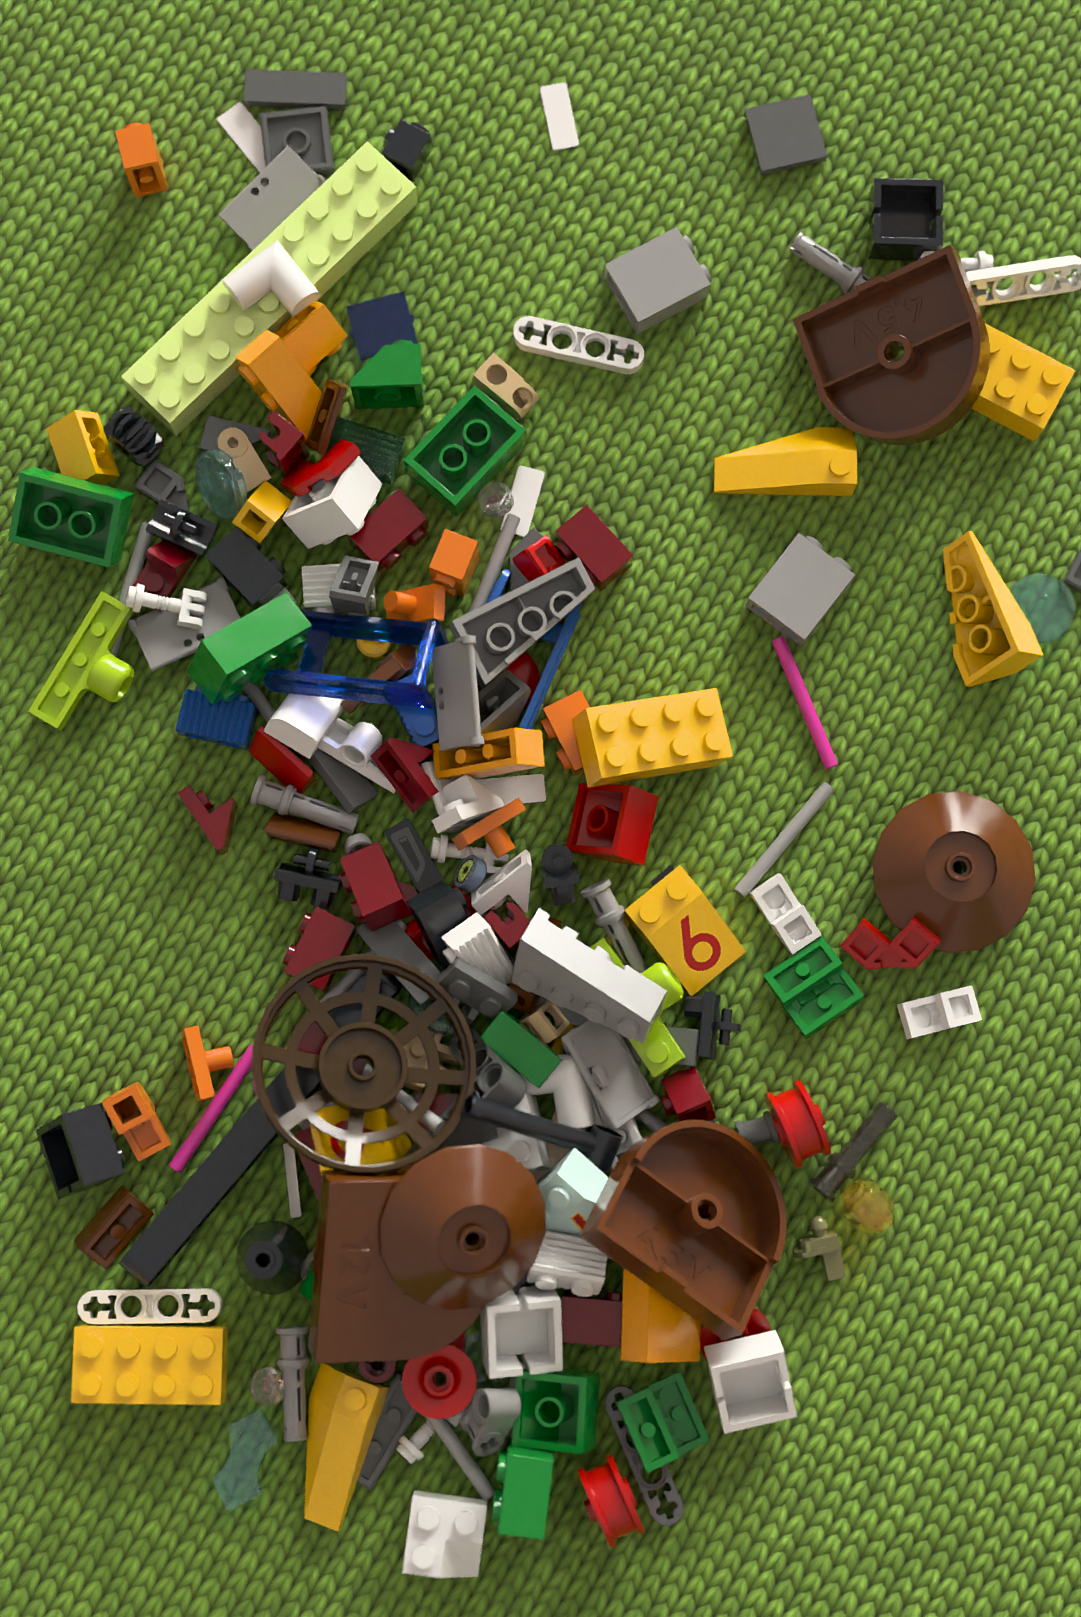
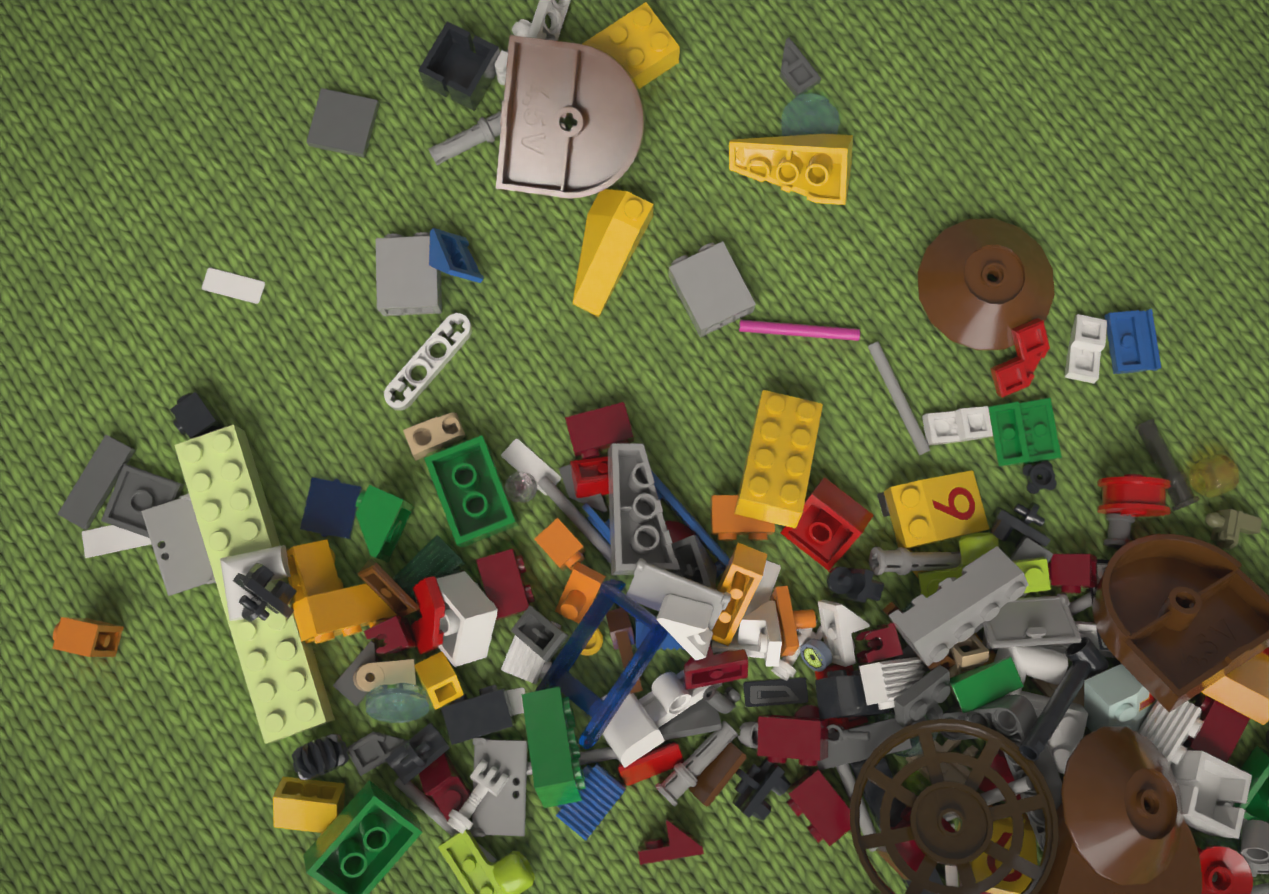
camera: 60 degrees left, 0 degrees up
(262, 313) = (254, 584): none -> black hips
(375, 801) = (722, 702): none -> dark grey arm
(403, 934) = (847, 734): none -> dark grey hand
(433, 716) = (687, 623): none -> white slope
(697, 313) = (451, 255): none -> blue slope
(773, 1013) = (1048, 477): none -> black plate
(972, 1058) = (1132, 341): none -> blue plate

